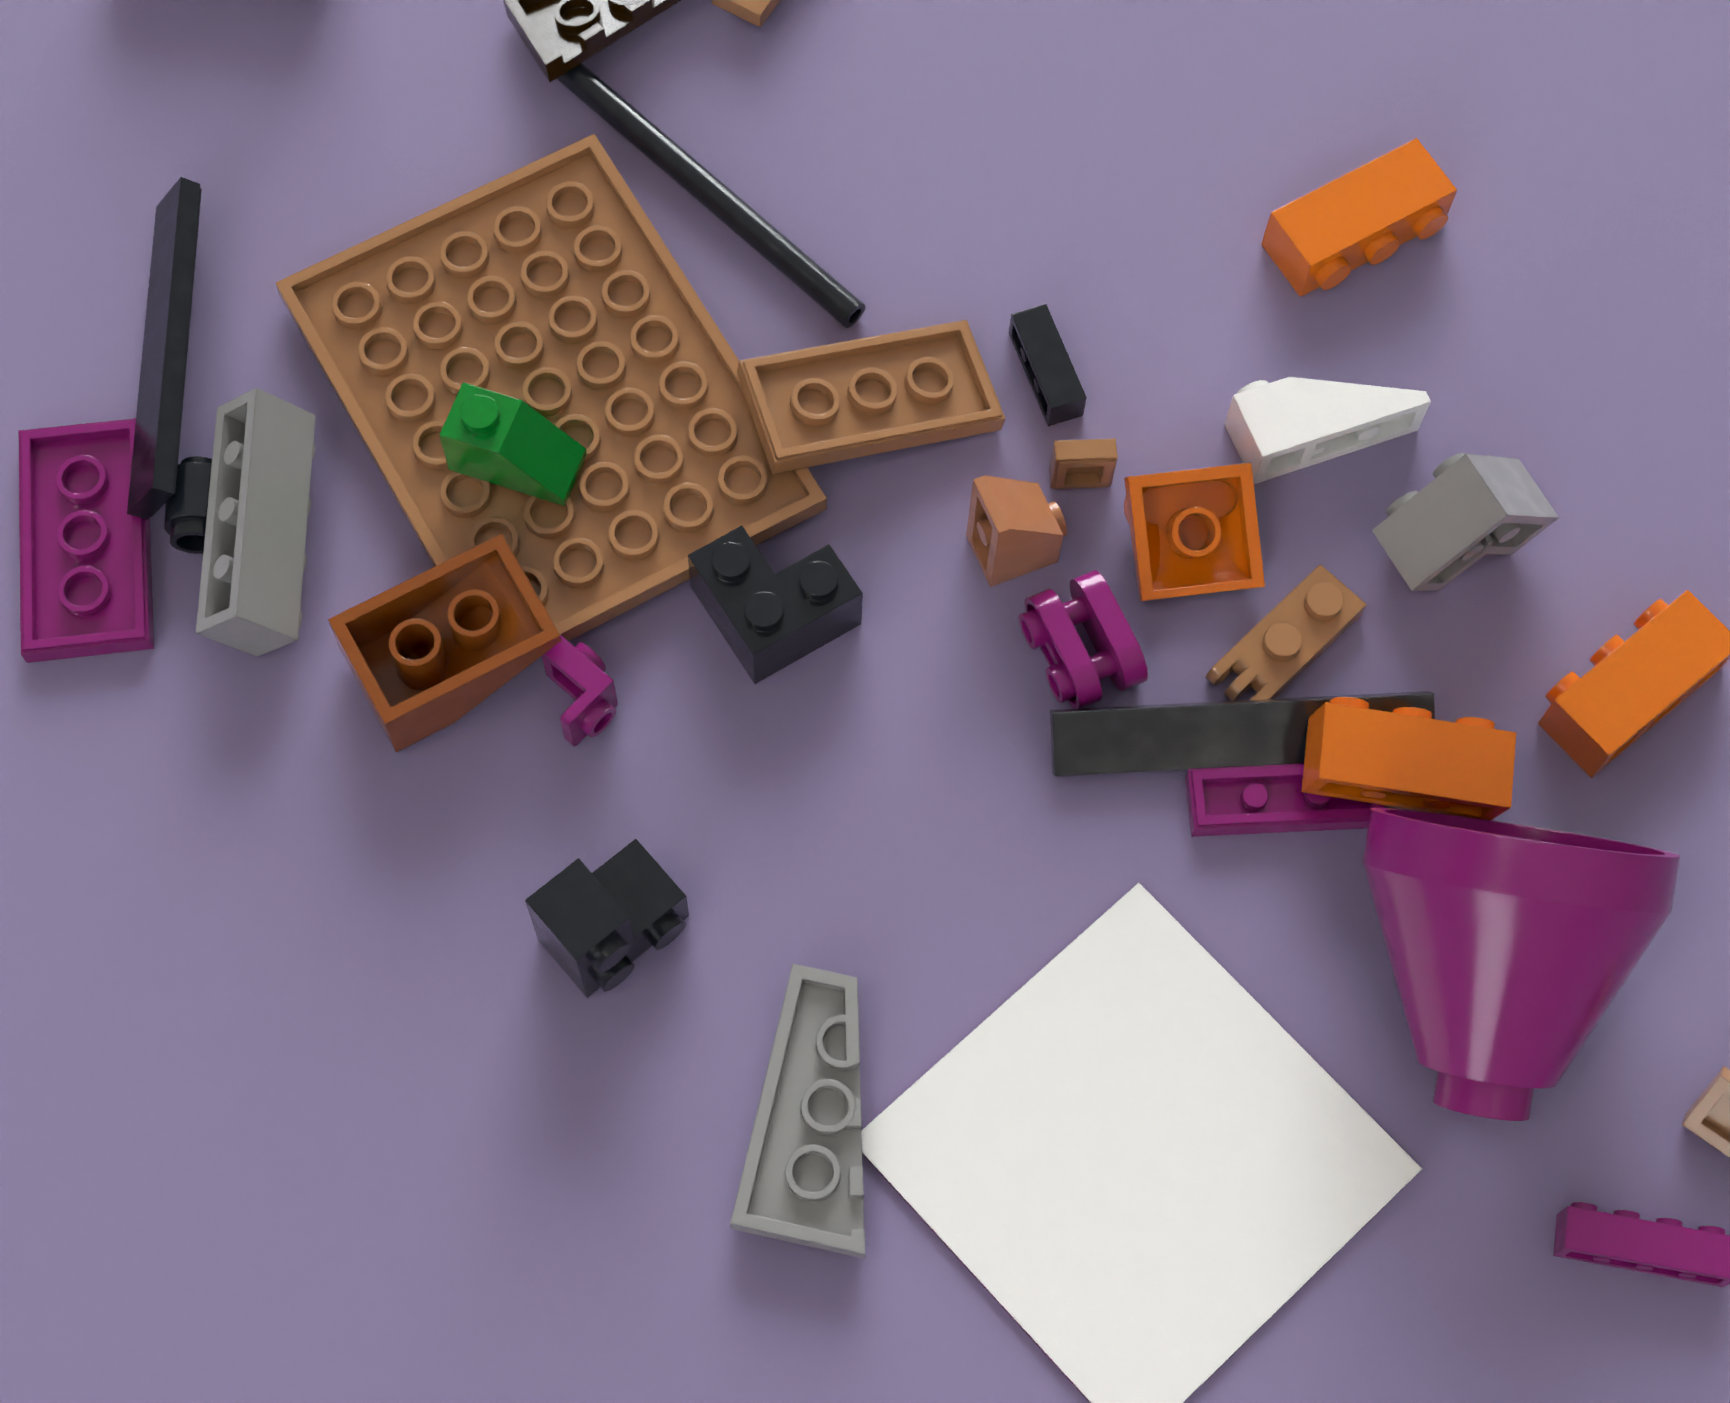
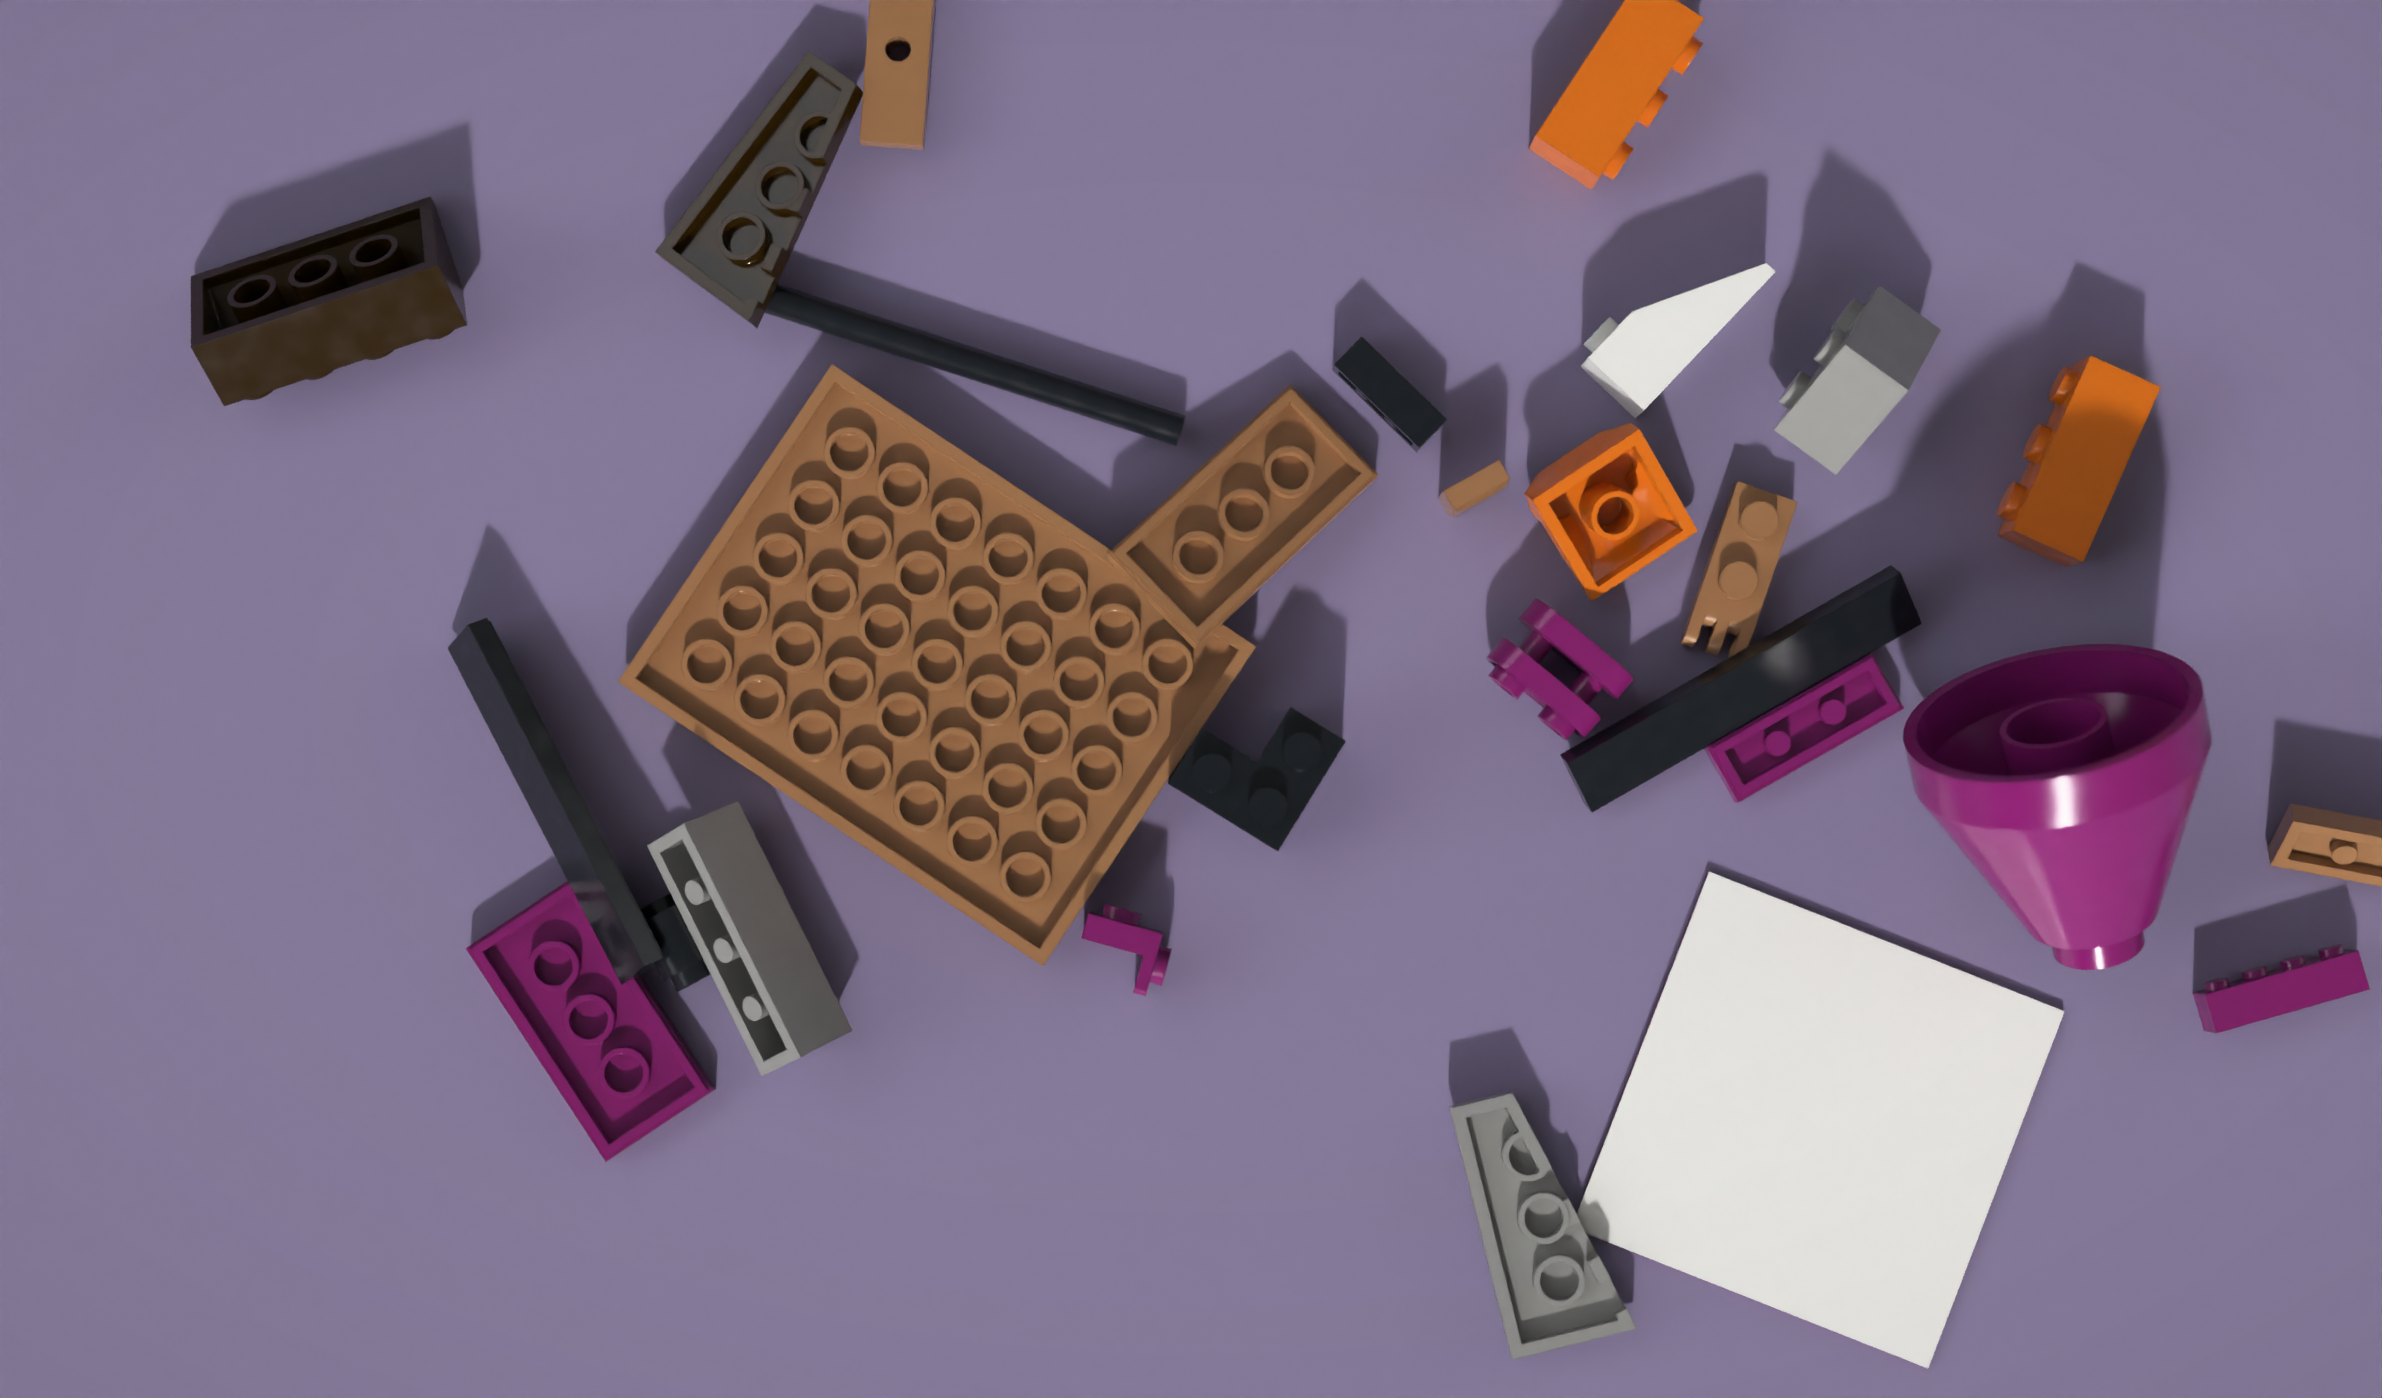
camera: 25 degrees left, 20 degrees up
(444, 640) = (989, 969): dark orange slope -> none
(510, 445) = (947, 752): green slope -> none
(607, 917) = (1270, 1150): black brick -> none
(1013, 528) = (1448, 592): nougat slope -> none
(1409, 759) = (1906, 654): orange brick -> none

